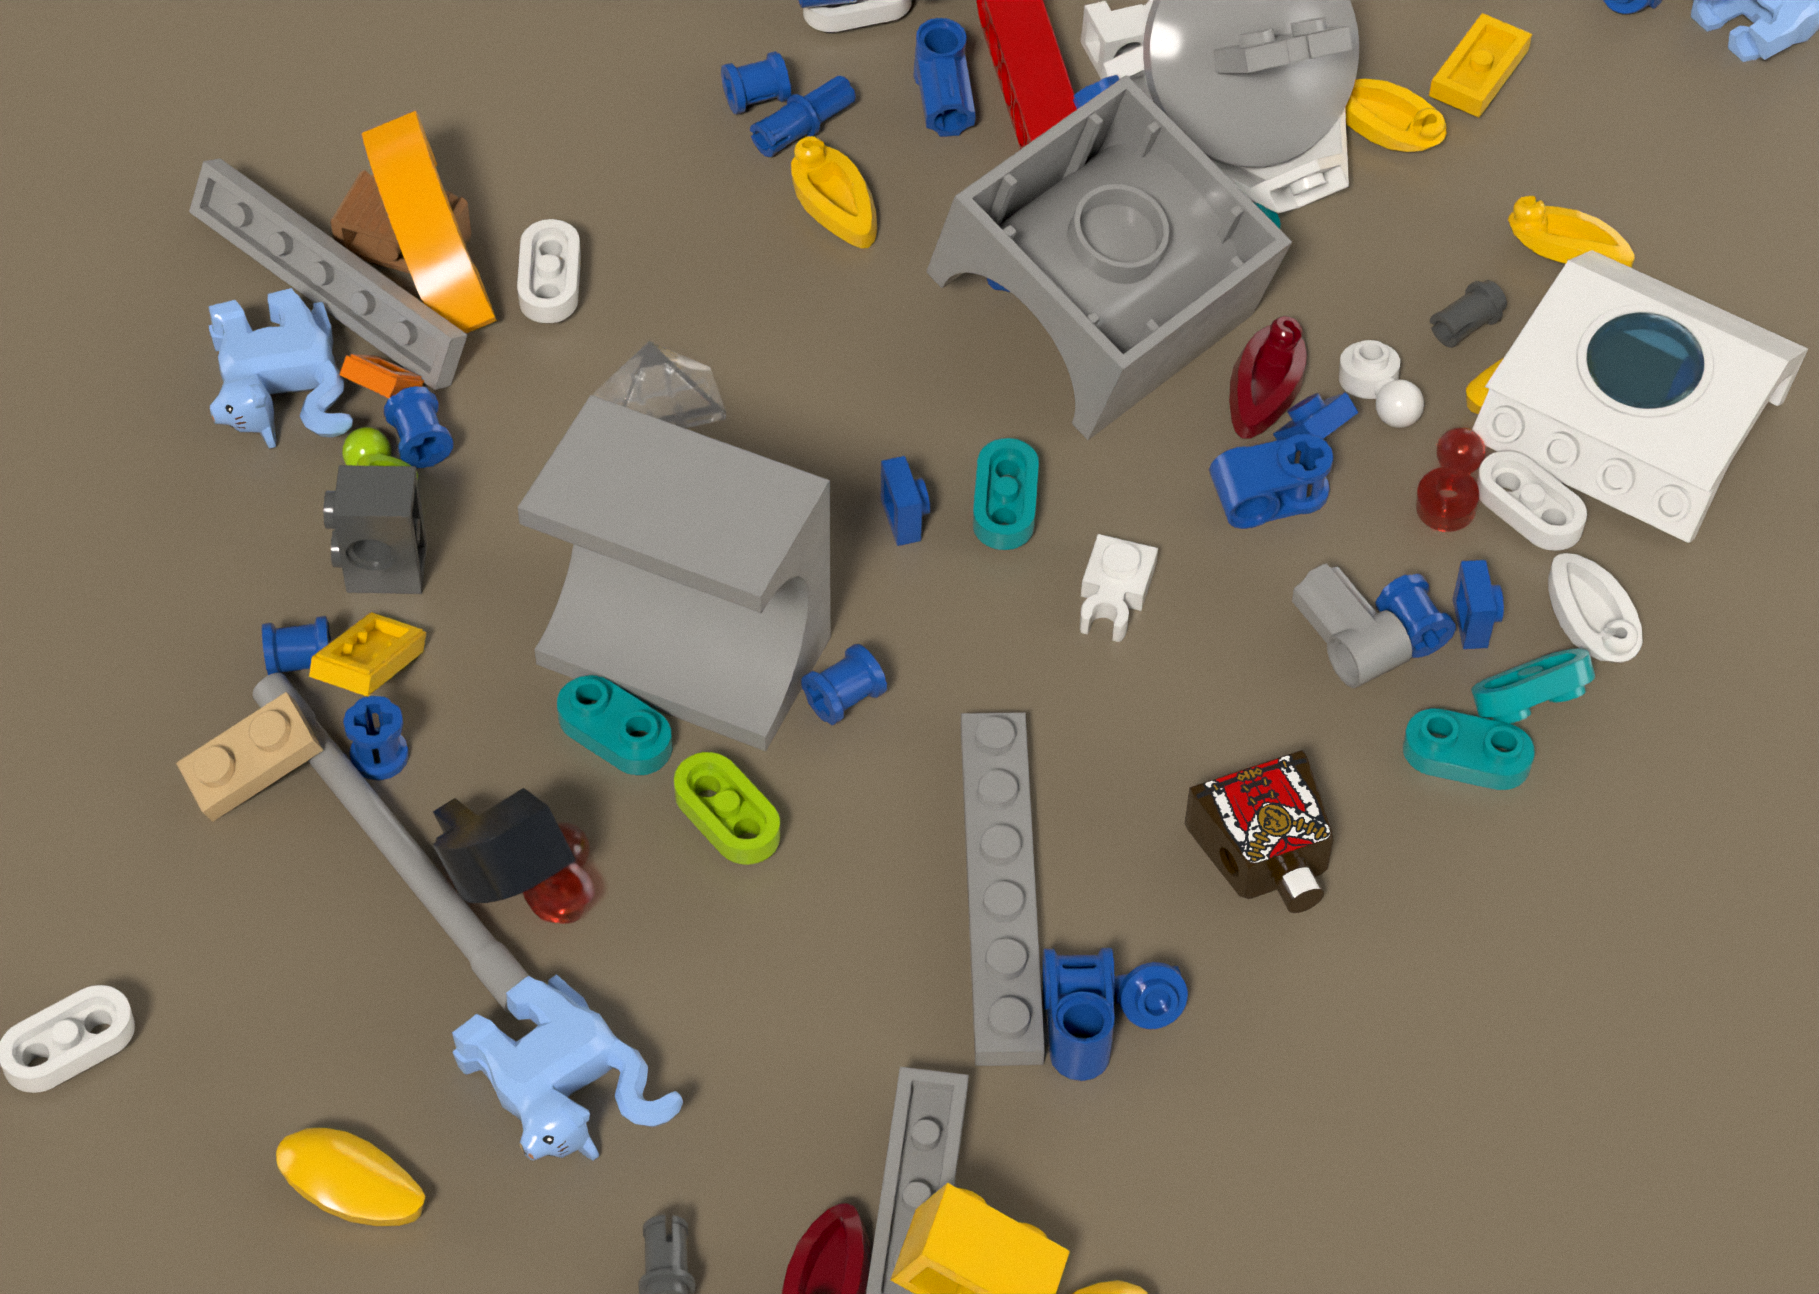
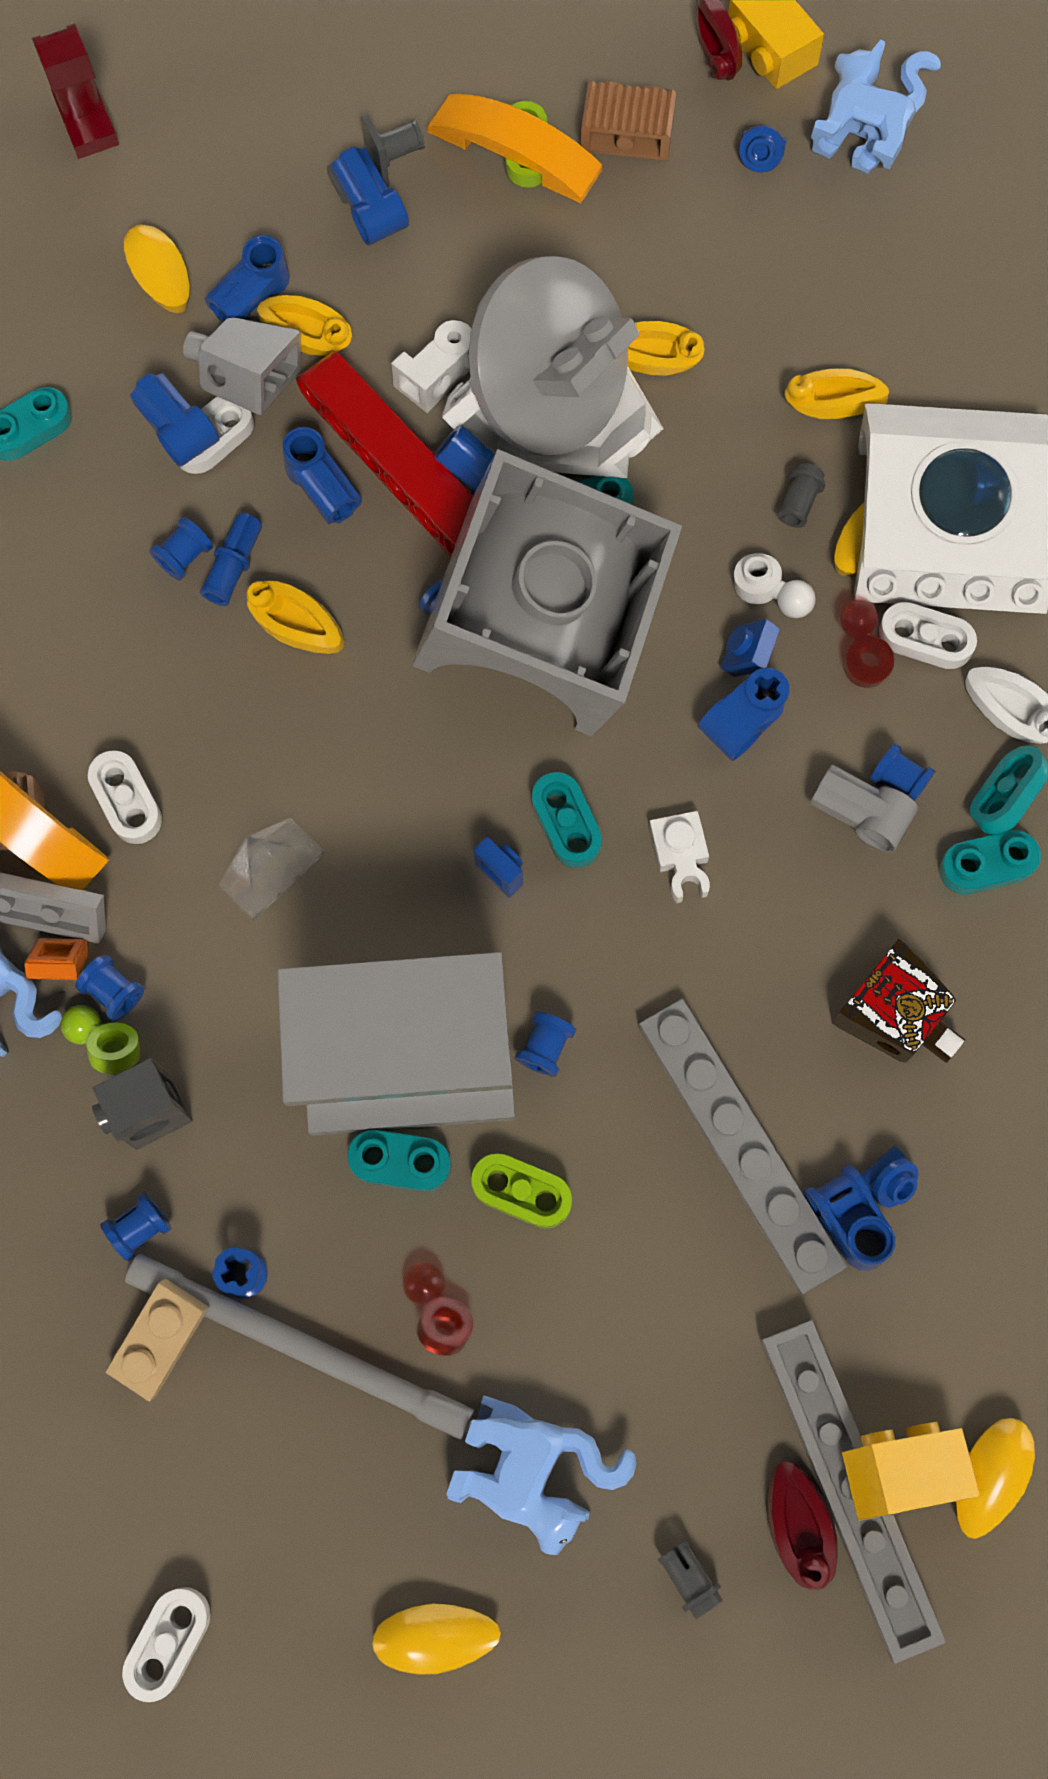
camera: 25 degrees left, 20 degrees up
(368, 654) = (193, 1209): yellow plate -> none
(502, 848) = (397, 1335): black brick -> none
(1267, 377) = (691, 622): dark red arm -> none
(1476, 604) = (939, 744): blue plate -> none
(1480, 65) = (695, 271): yellow plate -> none

